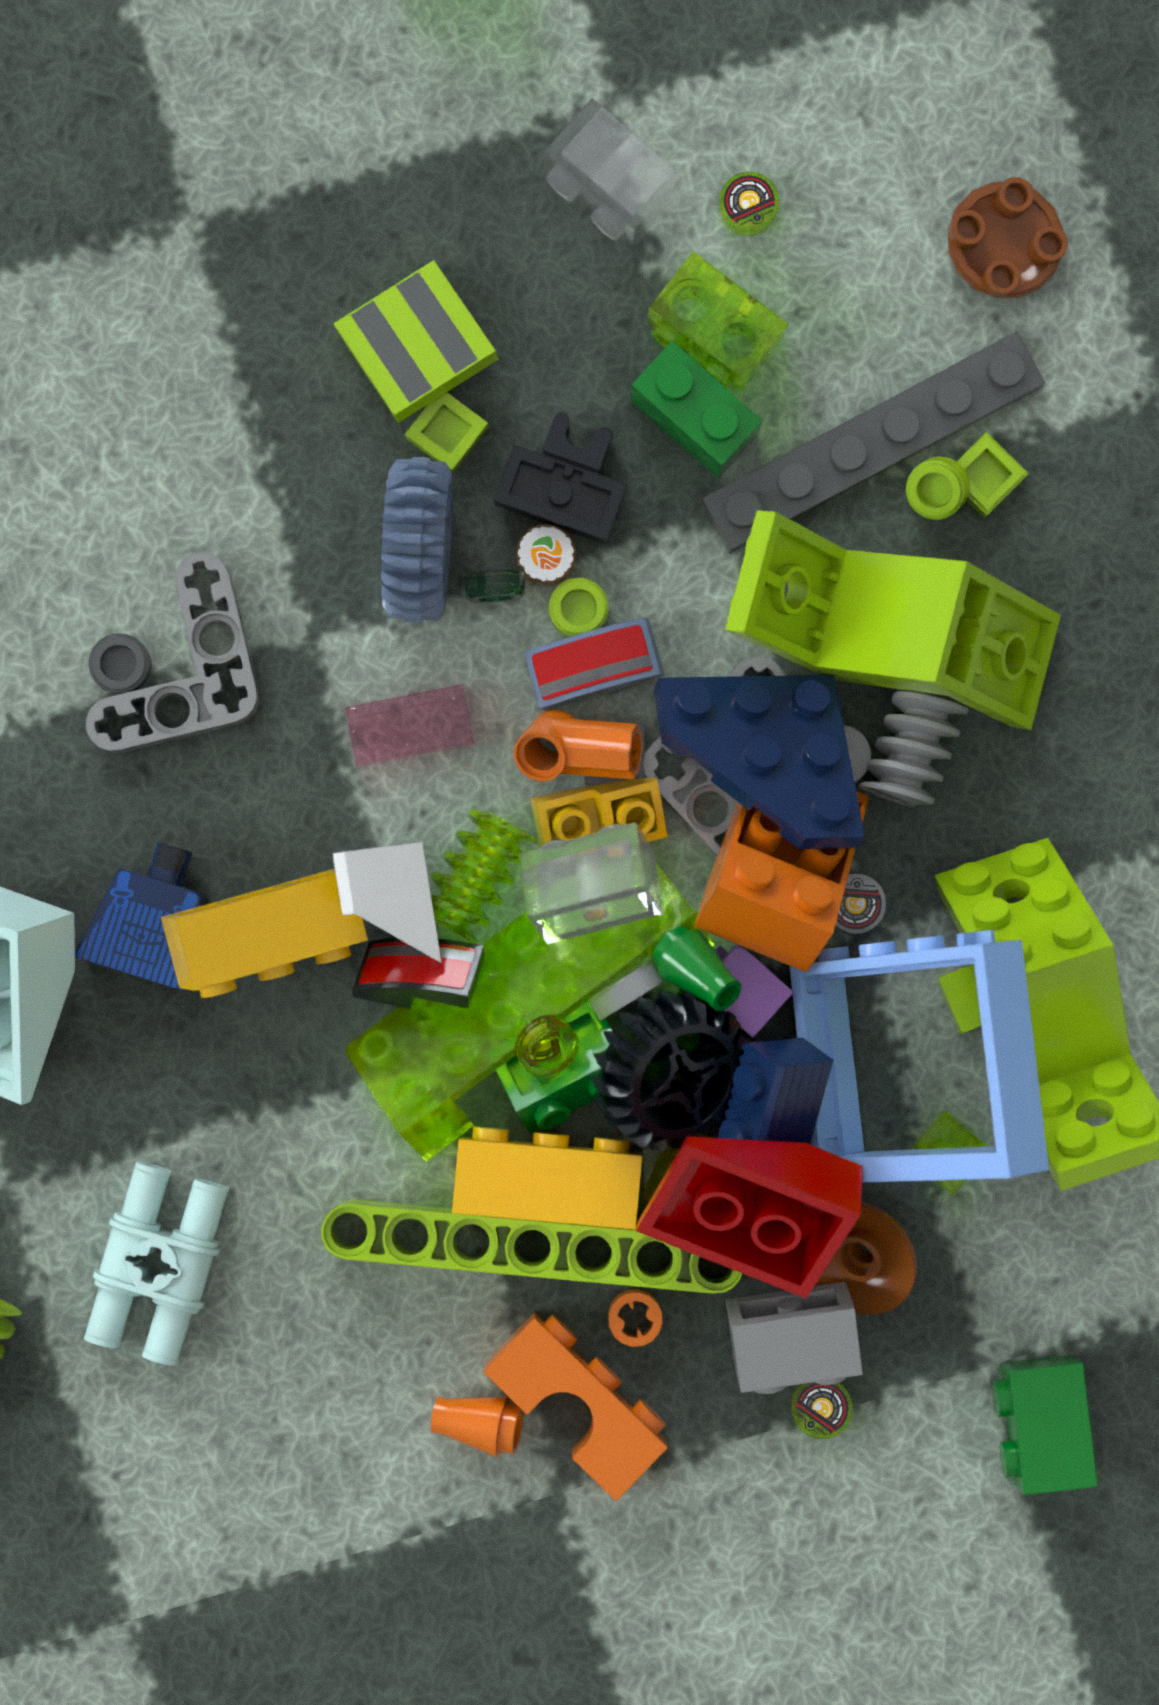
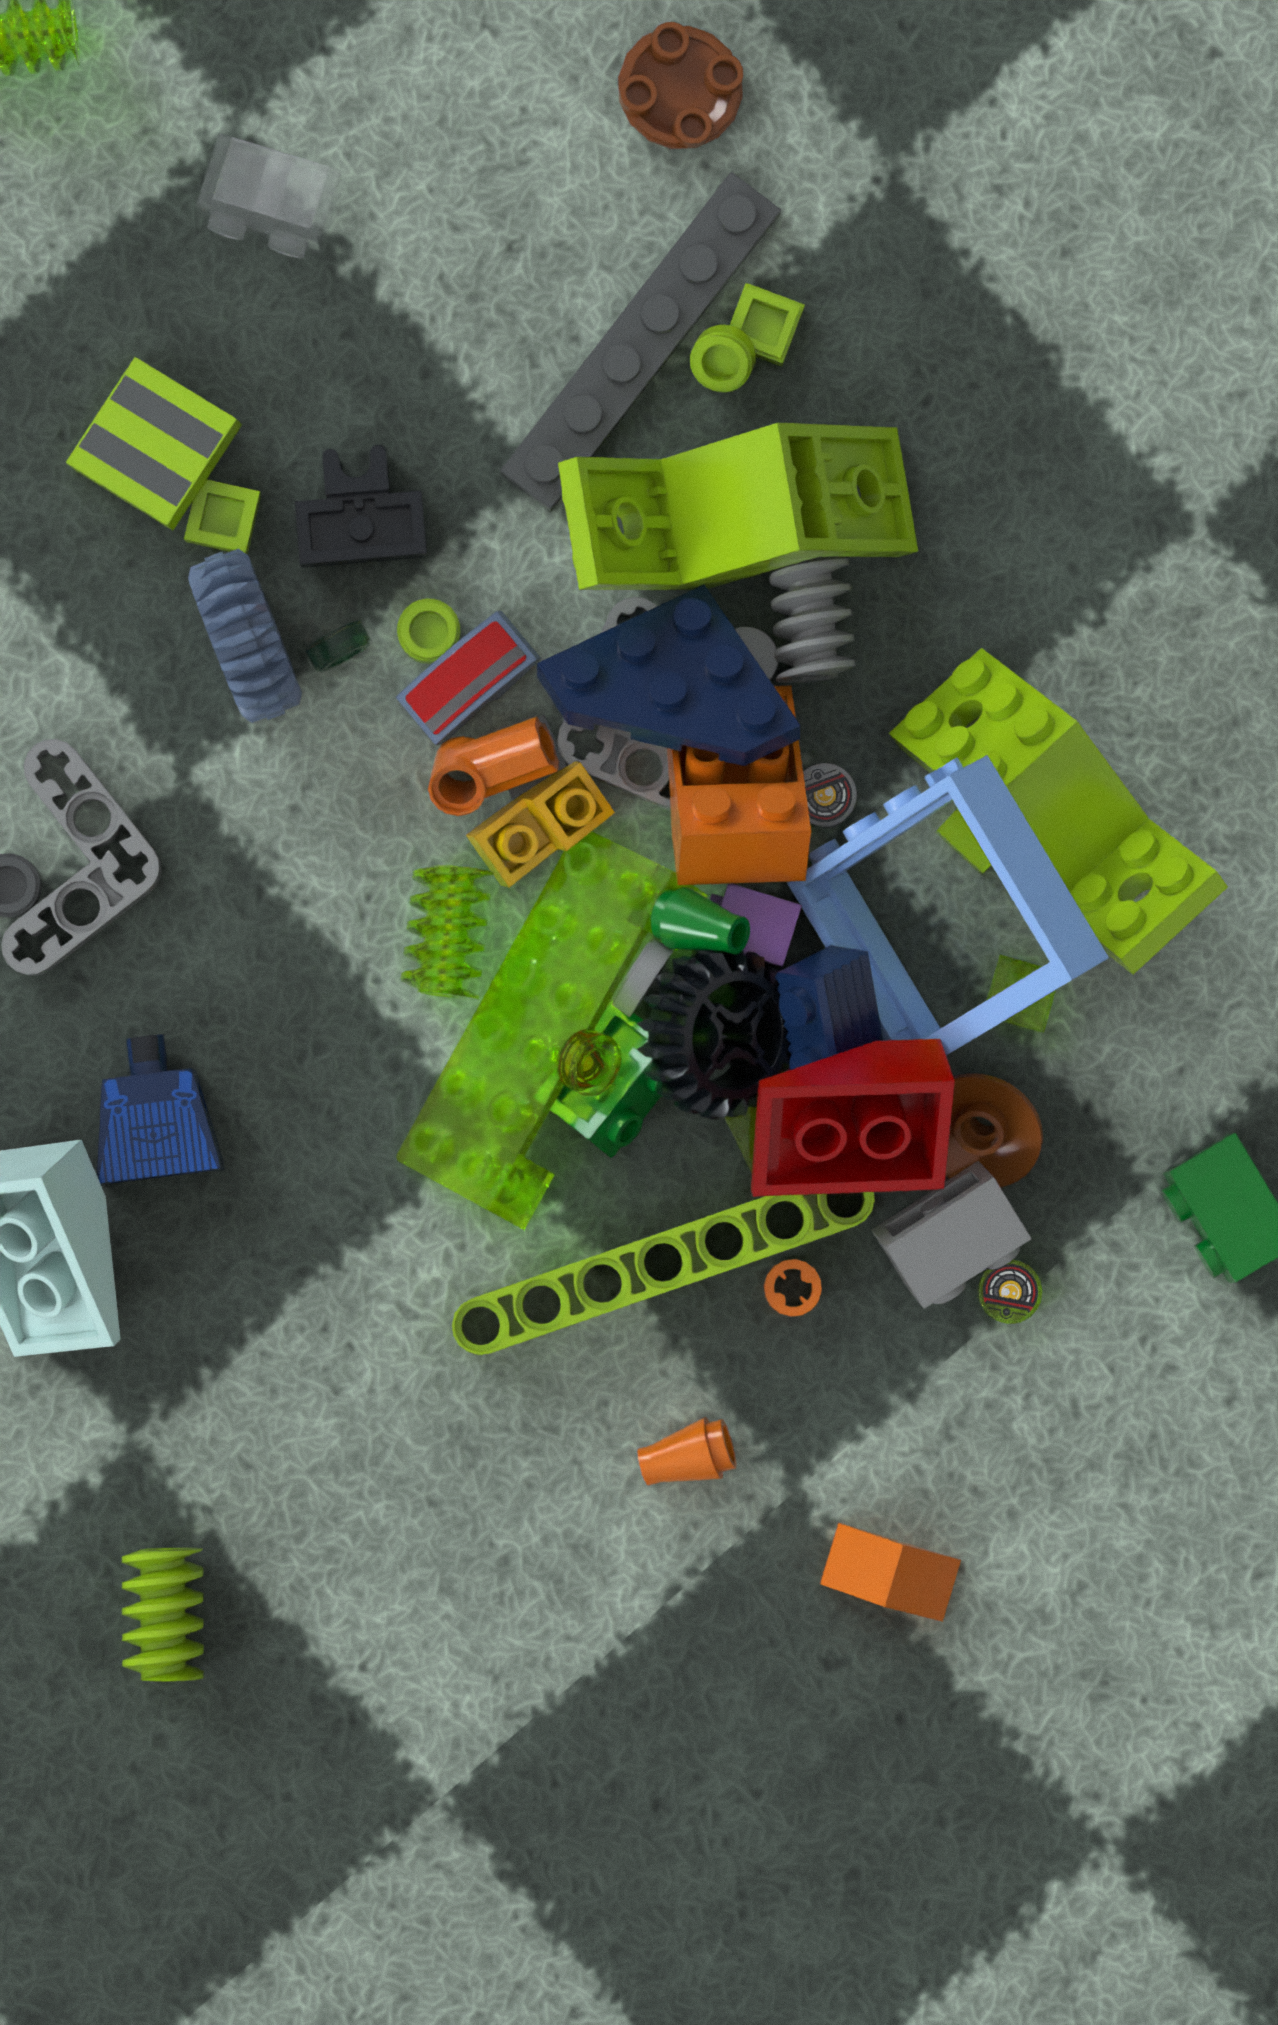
camera: 25 degrees left, 0 degrees up
(127, 1276) = (279, 1423): light aqua pin -> none
(260, 934) = (270, 1076): yellow brick -> none
(391, 892) = (374, 982): white slope -> none
(400, 973) = (437, 1043): slope -> none
(409, 725) = (317, 818): clear pink tile -> none
(542, 1362) = (829, 1406): orange arch -> none
(546, 555) = (373, 593): tile -> none
(547, 1179) = (648, 1191): yellow brick -> none
(591, 882) = (561, 888): clear brick -> none
(606, 1605) = (890, 1572): none -> orange slope
(695, 409) = (454, 388): green brick -> none
(728, 312) = (443, 279): clear neon green brick -> none
(748, 203) = (415, 163): tile -> none

